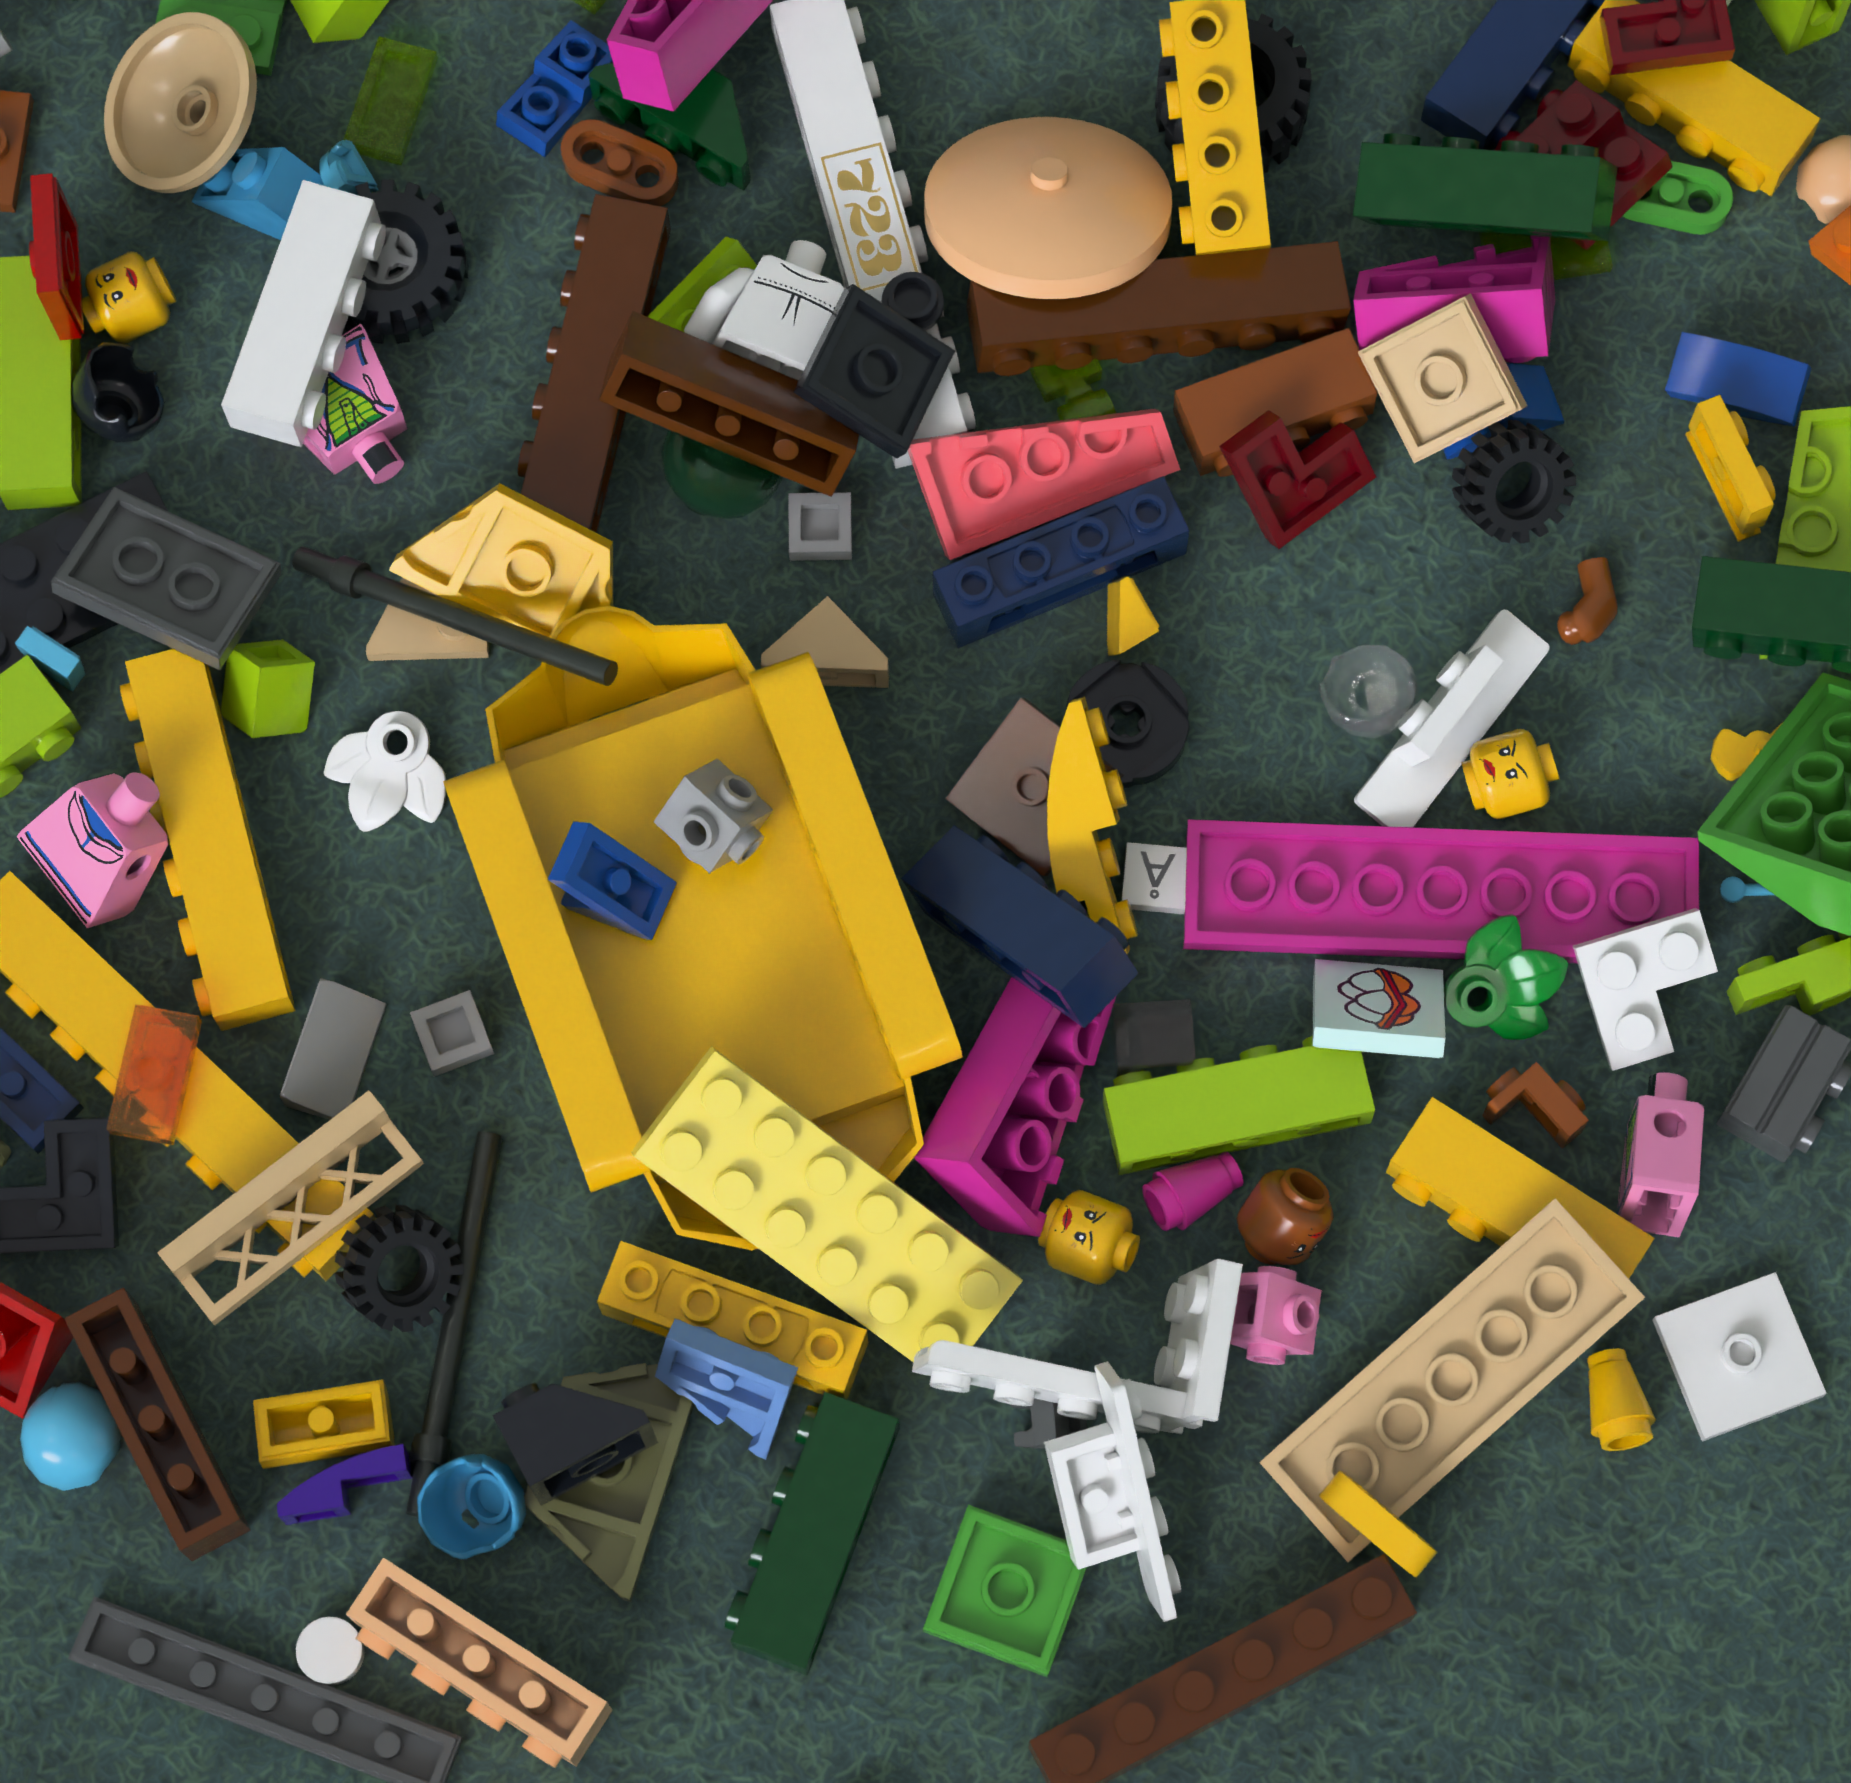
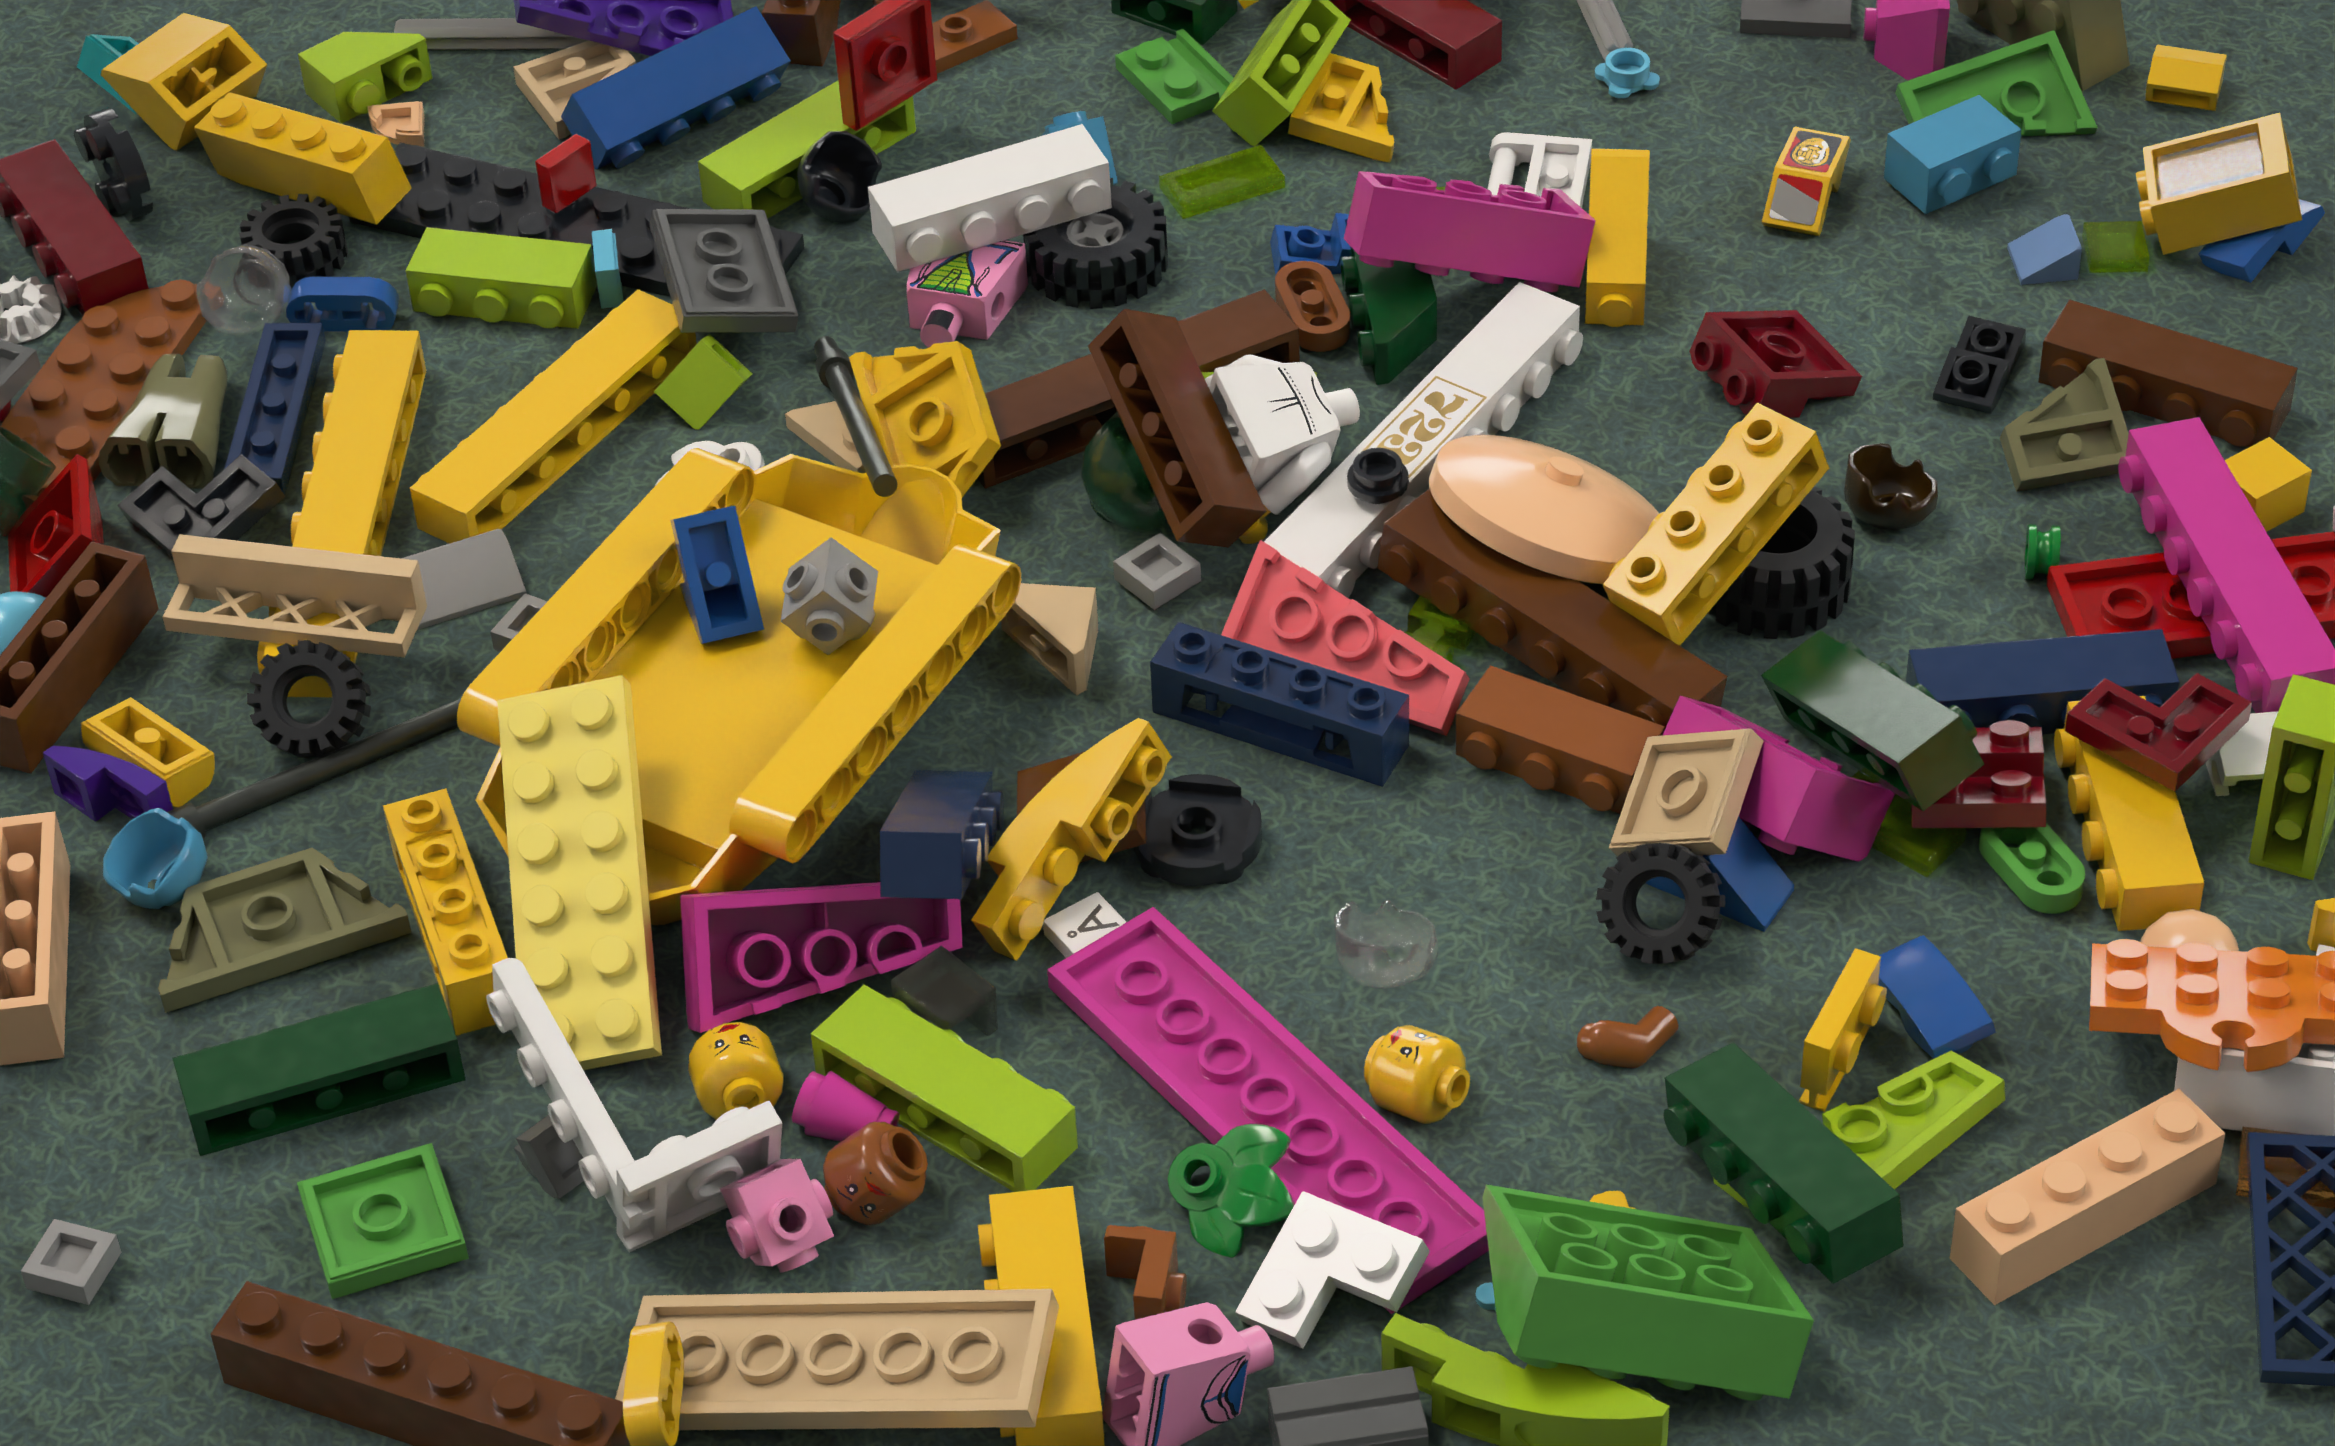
camera: 50 degrees right, 30 degrees down
(99, 845) = (500, 344): bright pink torso -> none
(127, 297) = (916, 141): yellow head -> none
(154, 1074) = (330, 479): clear orange plate -> none
(180, 102) = (1090, 79): tan dish -> none
(344, 168) = (1142, 173): medium azure tile -> none
(569, 1436) = (240, 843): black slope -> none
(727, 1381) = (389, 915): medium blue wing -> none
(874, 371) = (1291, 478): black plate -> none
(1106, 1495) = (505, 1188): white bracket -> none
(1127, 616) = (1278, 768): yellow slope -> none
(1293, 488) = (1496, 795): dark red plate -> none
(1378, 1008) = (1111, 1108): light aqua tile -> none
(1459, 714) = (1433, 991): white bracket -> none

